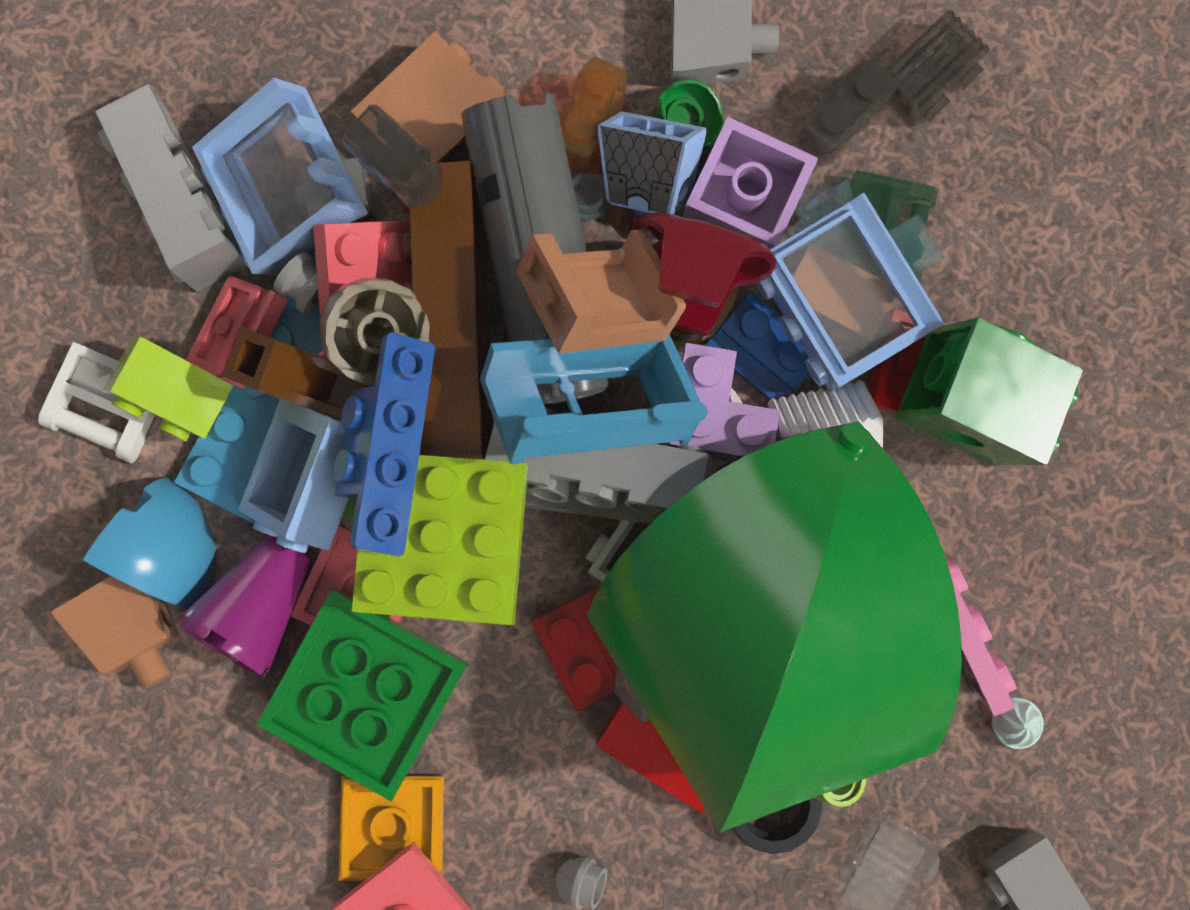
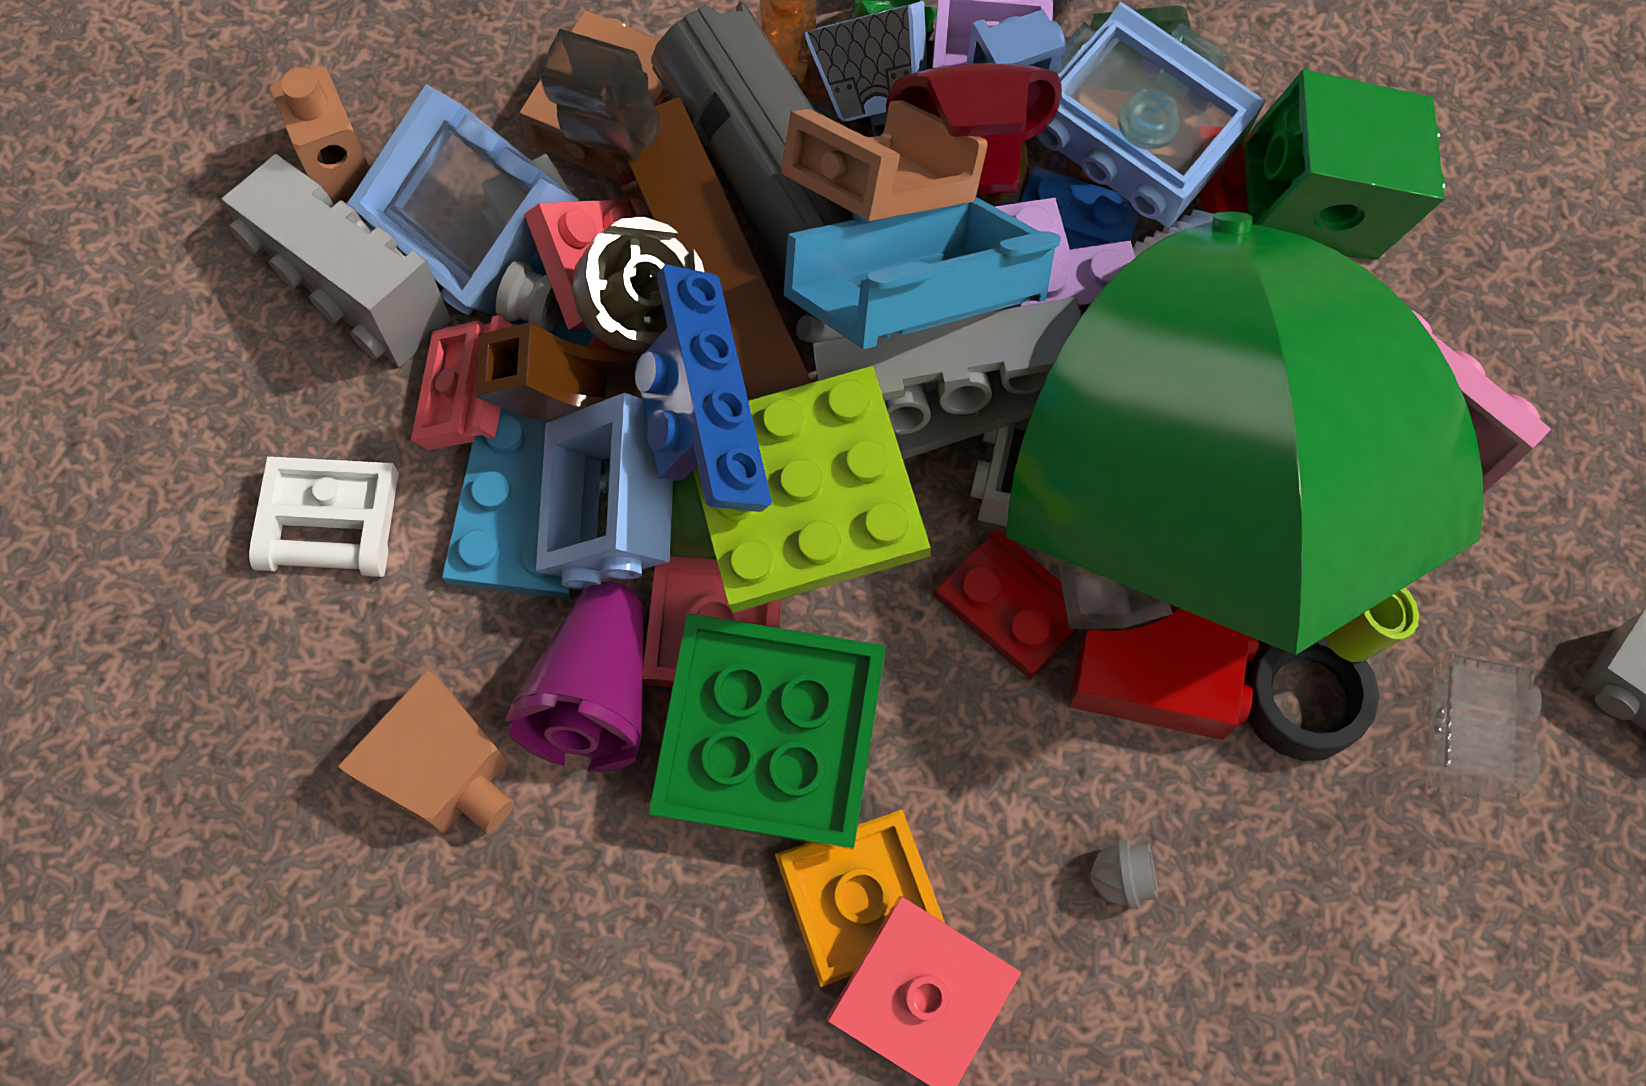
camera: 15 degrees left, 15 degrees down
(159, 545) = (449, 646): dark azure brick -> none
(168, 388) = (403, 460): lime brick -> none
(190, 68) = (316, 120): none -> nougat torso
(761, 209) = (1018, 40): none -> medium blue brick
(839, 310) = (1149, 119): none -> clear light blue plate
(1019, 726) = (1543, 511): light aqua plate -> none

